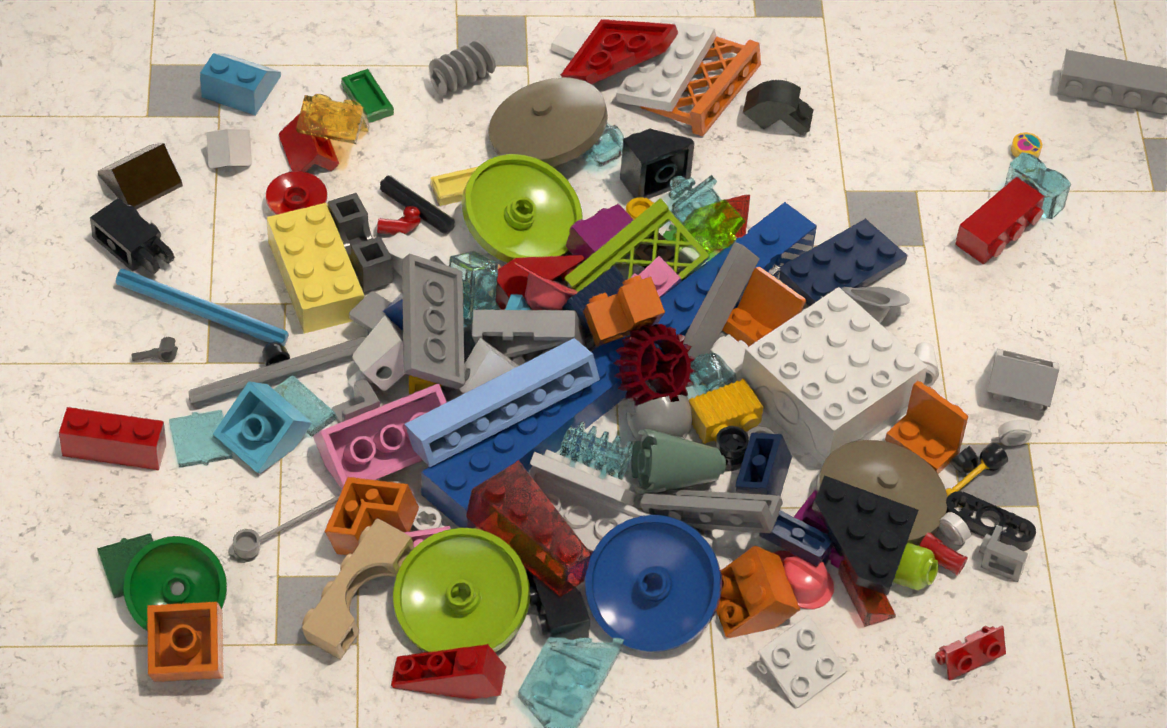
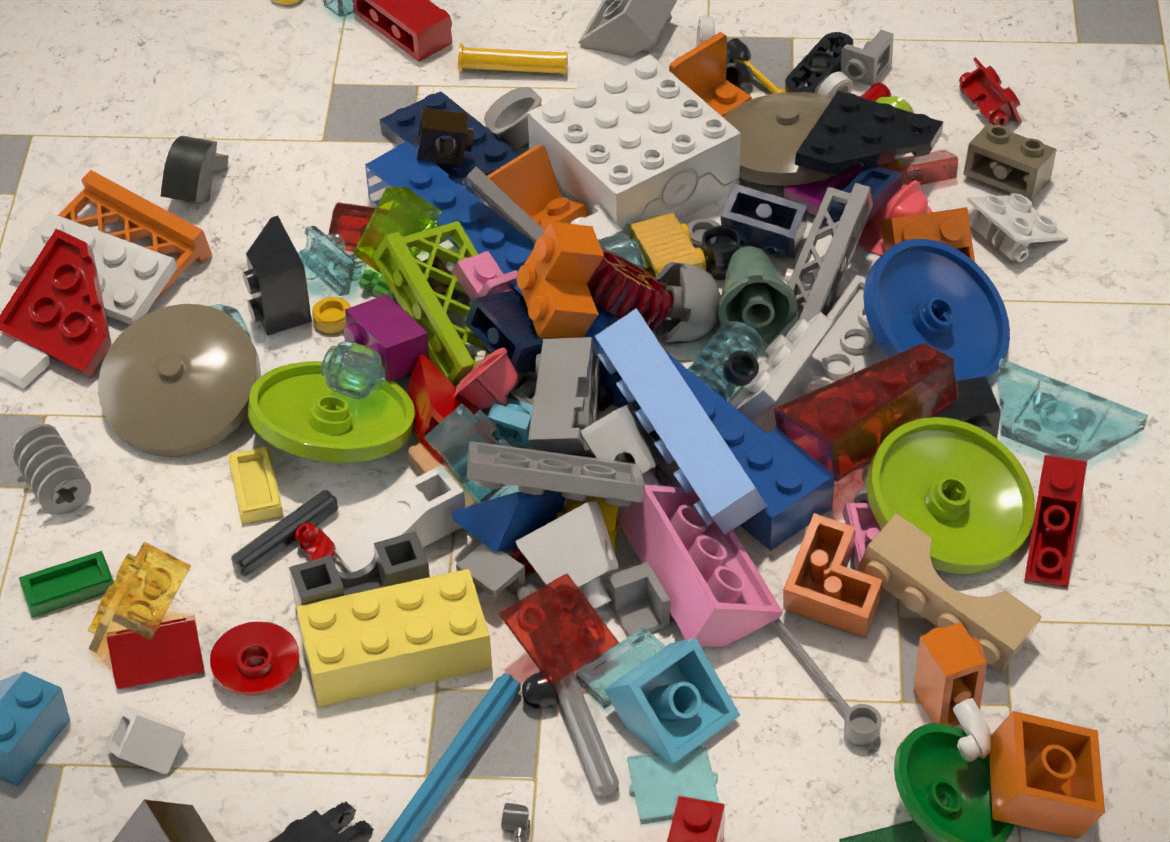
camera: 80 degrees left, 5 degrees down
(225, 597) = (978, 737): none -> white arm
(275, 584) = (948, 672): none -> orange brick
(314, 351) = (558, 628): none -> clear red hinge
(555, 213) = (353, 369): none -> clear light blue head
(566, 443) = (740, 368): none -> black hinge
(813, 241) = (438, 123): none -> dark brown brick
(874, 656) = (1009, 161): none -> dark tan brick
(957, 300) = (512, 60): none -> yellow pin

